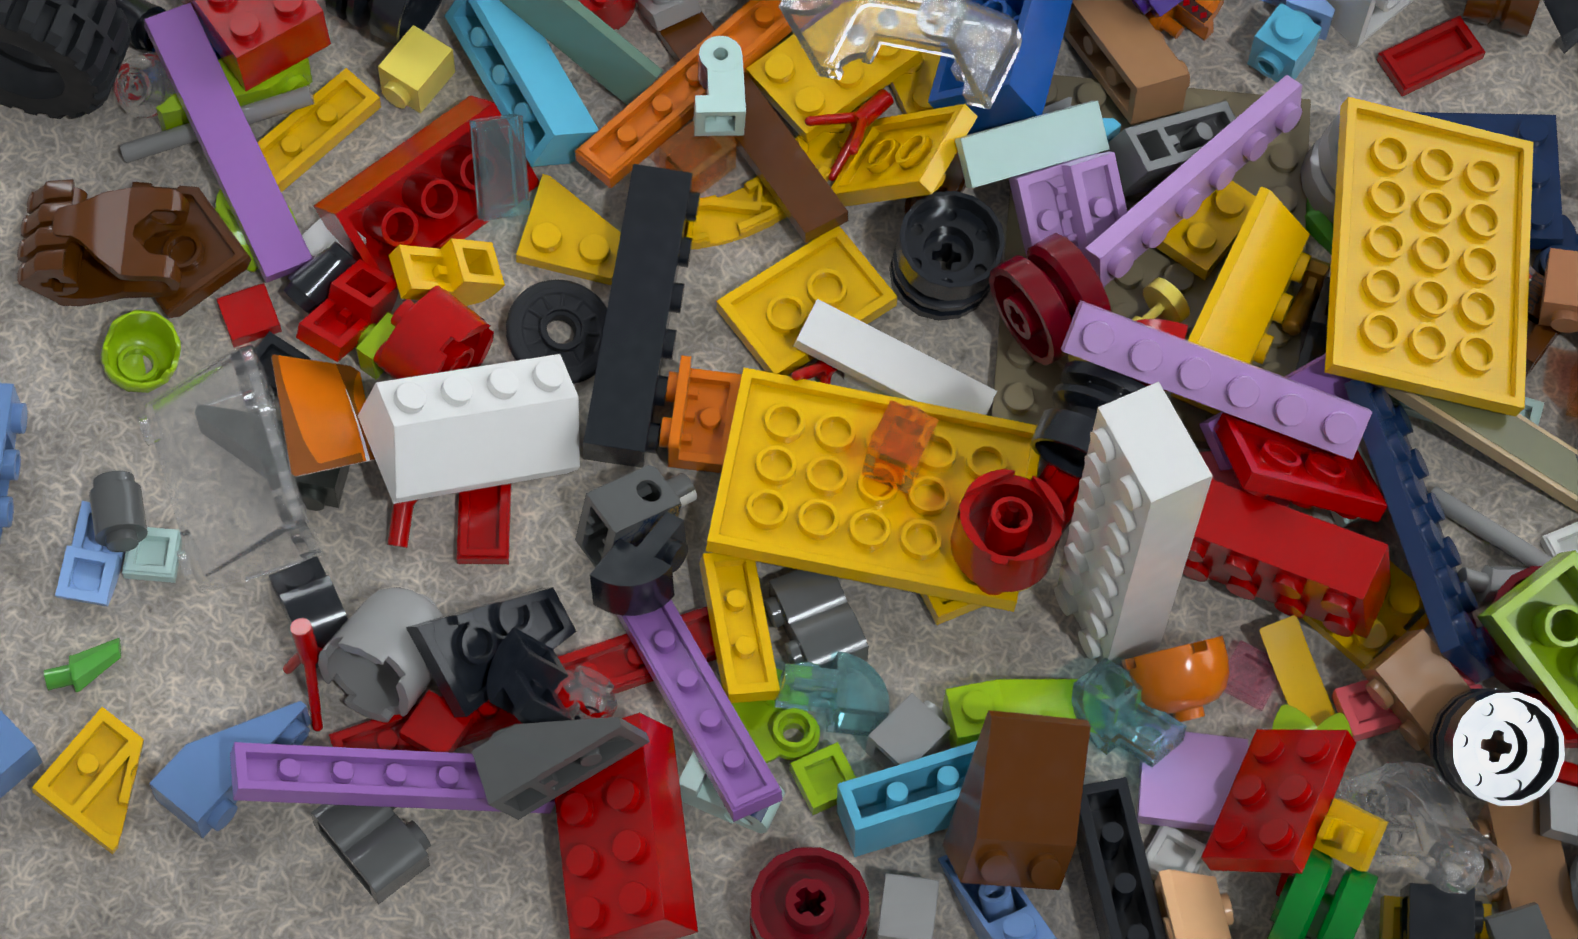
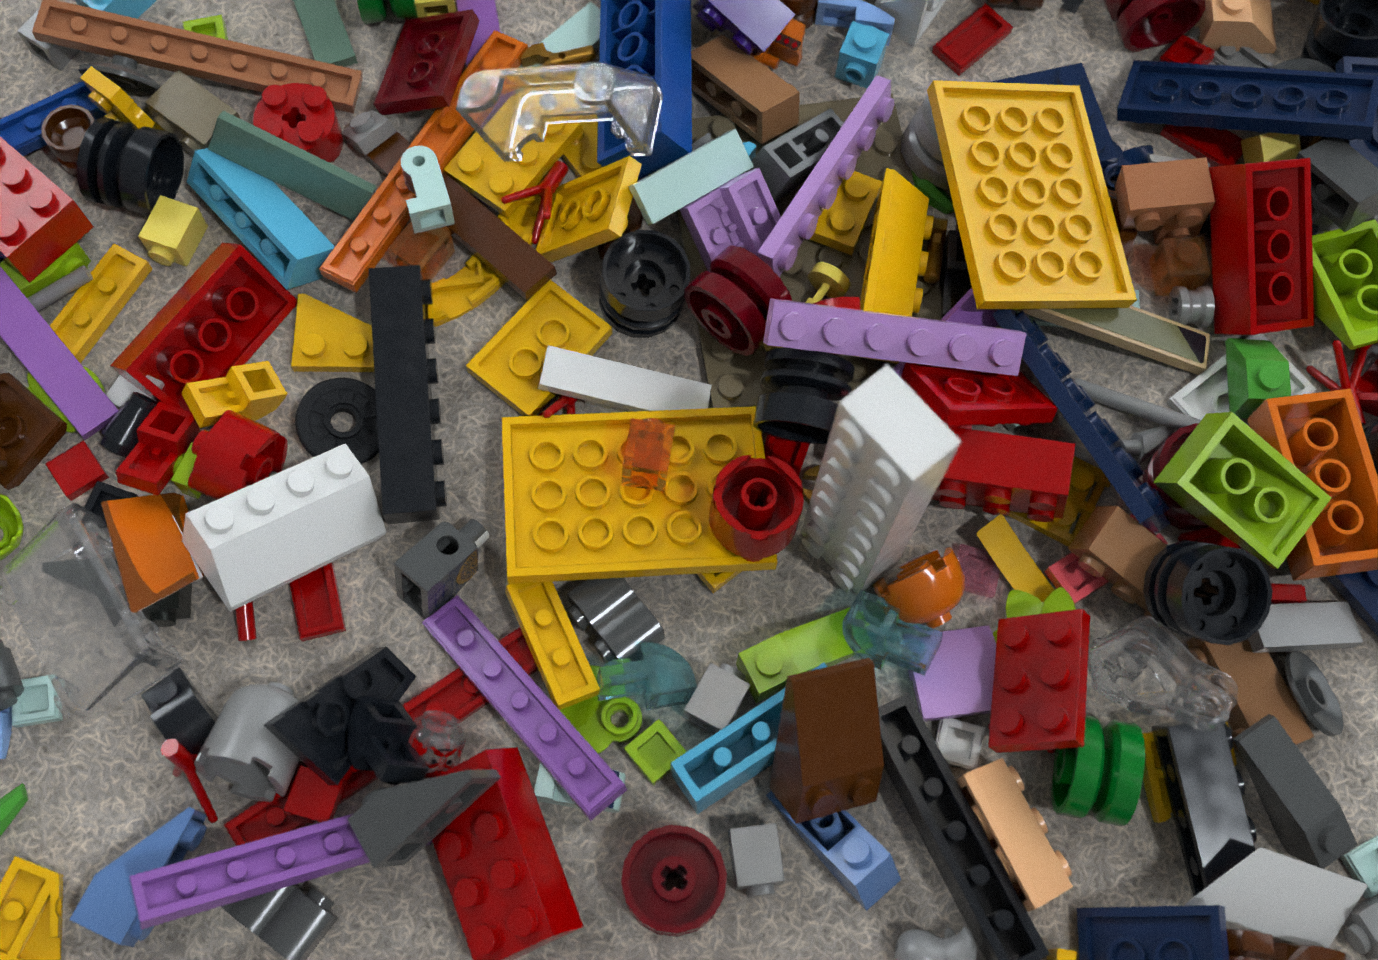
camera: 15 degrees left, 5 degrees up
(500, 167) = (259, 296): clear light blue tile -> none
(641, 577) = (457, 622): black brick -> none
(700, 418) = (476, 466): orange bracket -> none
(1350, 834) = (1110, 698): yellow tile -> none

